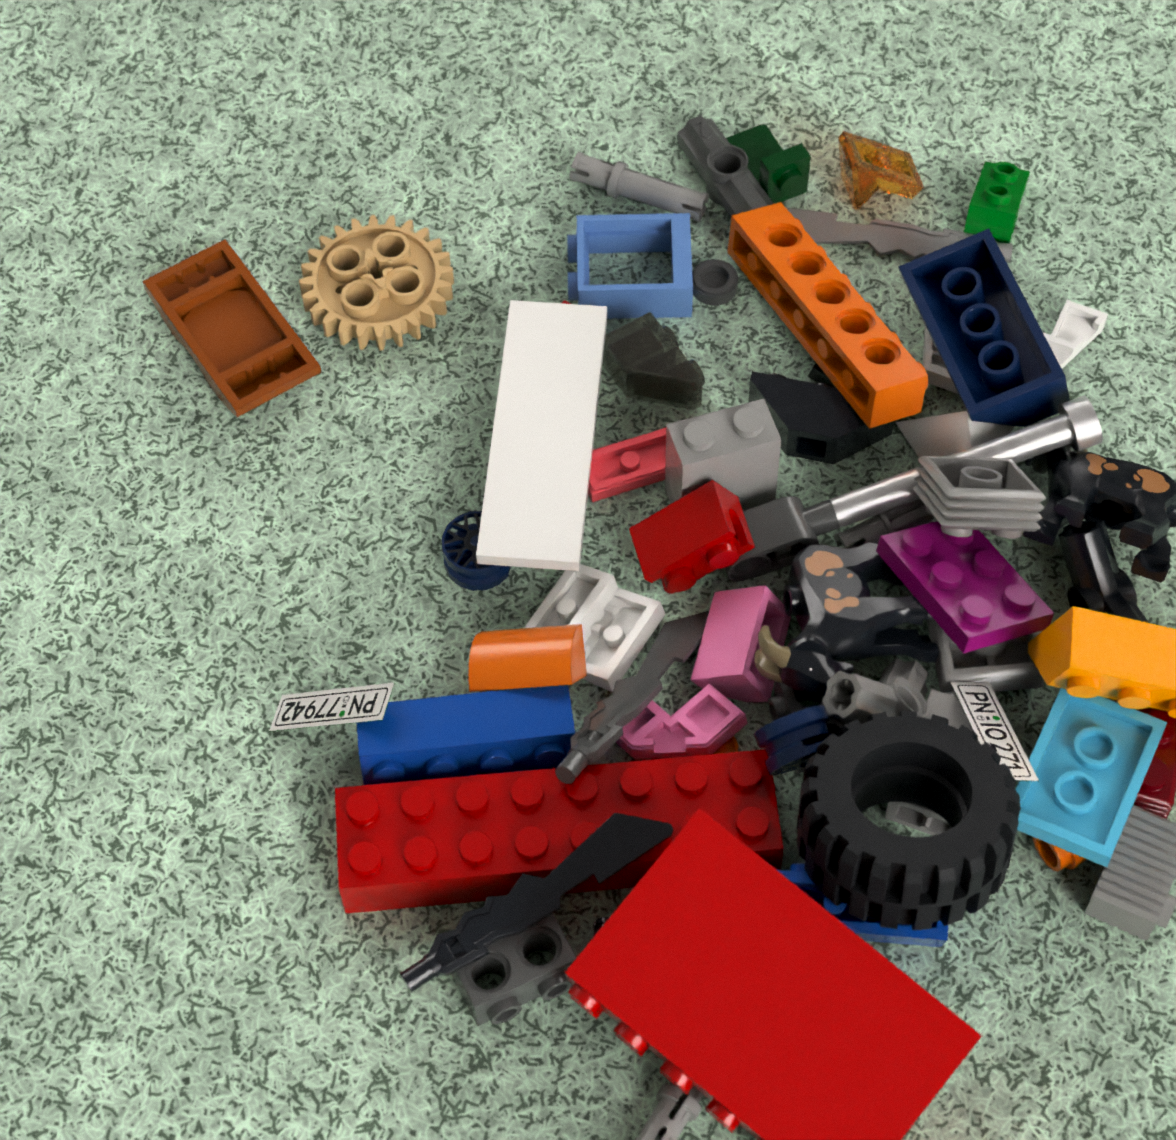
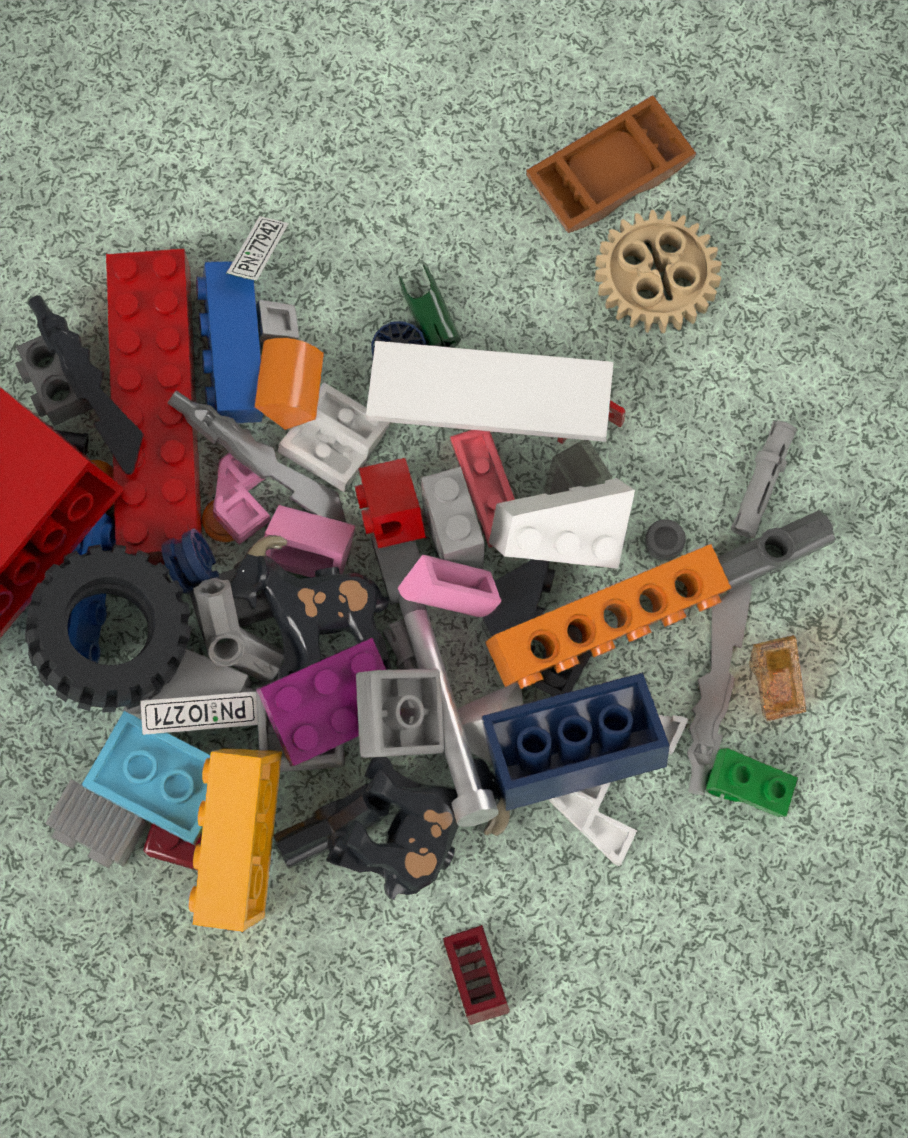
camera: 90 degrees right, 15 degrees up
(424, 515) = (432, 315): none -> dark green piece
(435, 682) = (276, 320): none -> light grey plate
(632, 235) = (675, 508): medium blue window -> none
(718, 339) = (567, 526): none -> white wedge
(778, 171) = (789, 587): dark green bracket -> none
(811, 455) = (451, 587): none -> bright pink brick

